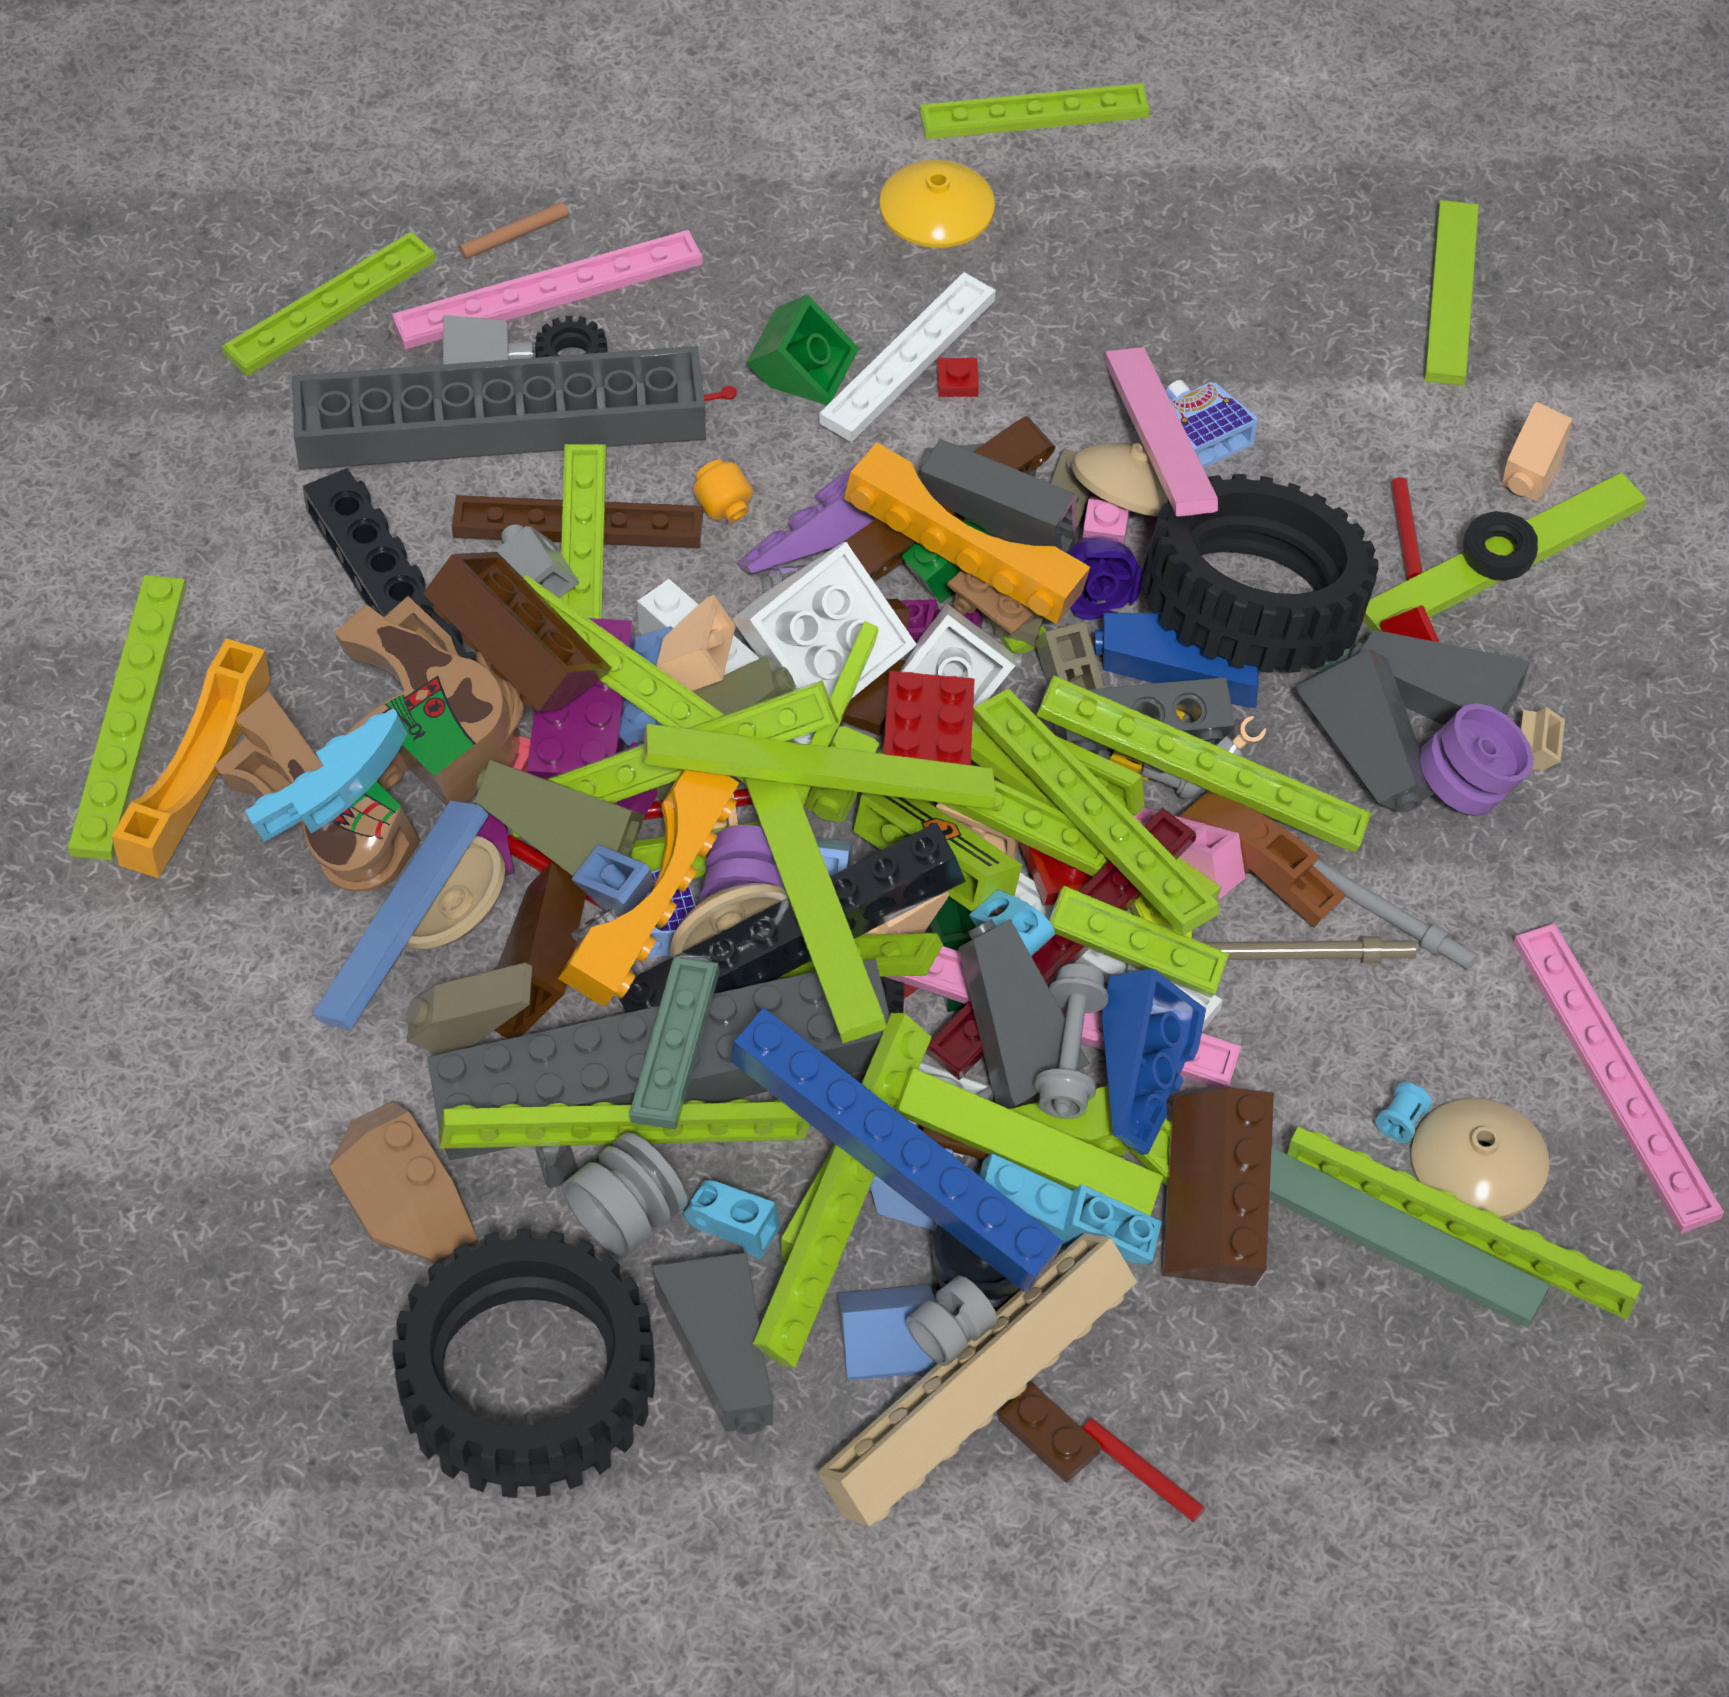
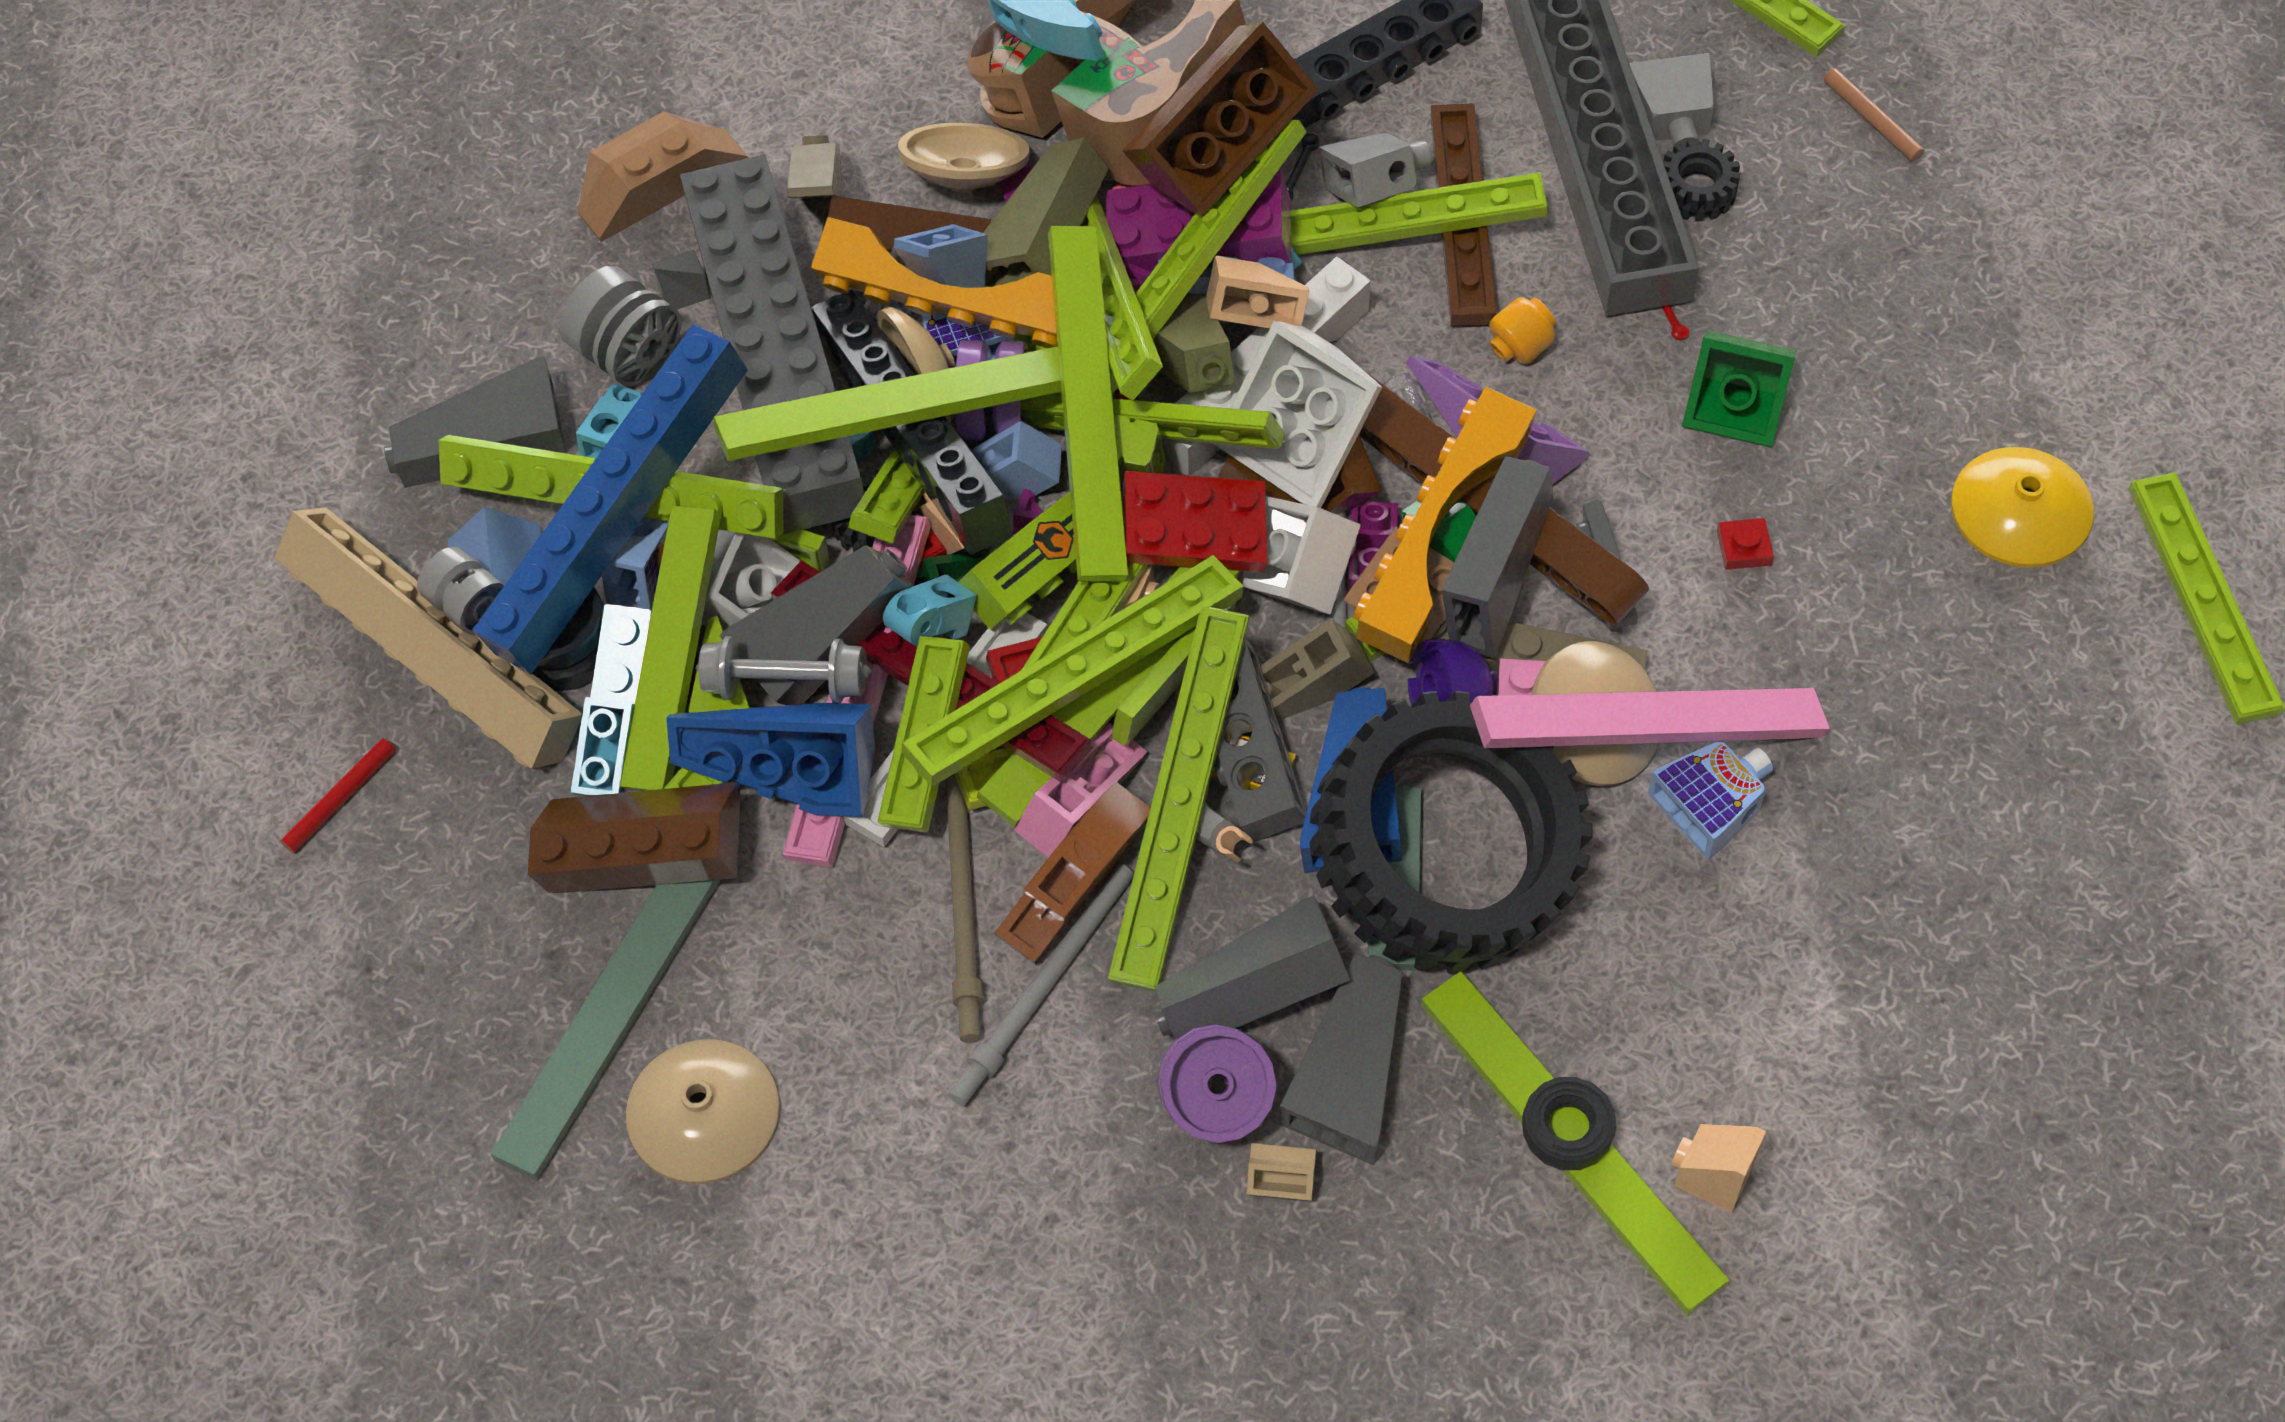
camera: 90 degrees right, 5 degrees up
(400, 915) = (936, 121): medium blue tile -> none
(506, 1274) = (433, 202): black tyre -> none
(552, 286) = (1799, 160): bright pink tile -> none
(605, 1122) = (690, 291): lime plate -> none
(674, 1043) = (760, 321): sand green tile -> none
(907, 357) = (1762, 490): white plate -> none
(1049, 1433) = (381, 711): reddish brown plate -> none
(1404, 1112) = (748, 1024): medium azure bush -> none
(1406, 527) = (1597, 1028): red bar -> none
(1411, 623) = (1422, 1022): red slope -> none
(1451, 293) = (2011, 1079): lime tile -> none
(1479, 1228) = (599, 1098): lime plate -> none
(1618, 1079) = (811, 1257): bright pink tile -> none

